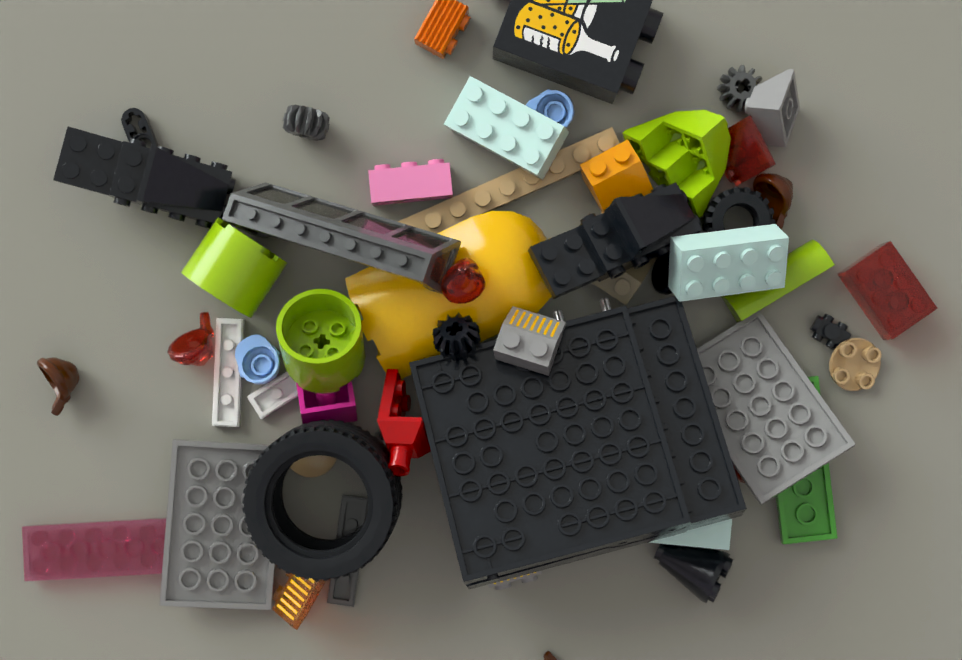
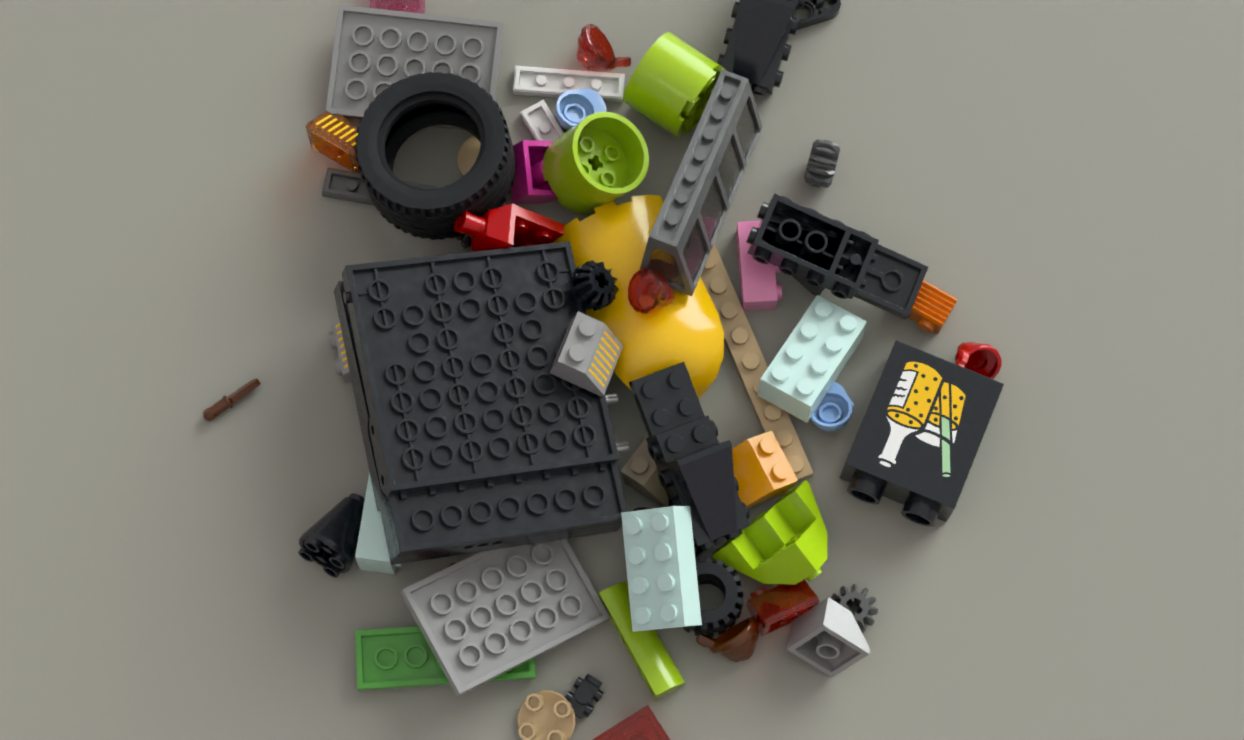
camera: 90 degrees right, 15 degrees down
(408, 107) = (834, 257): none -> black wedge

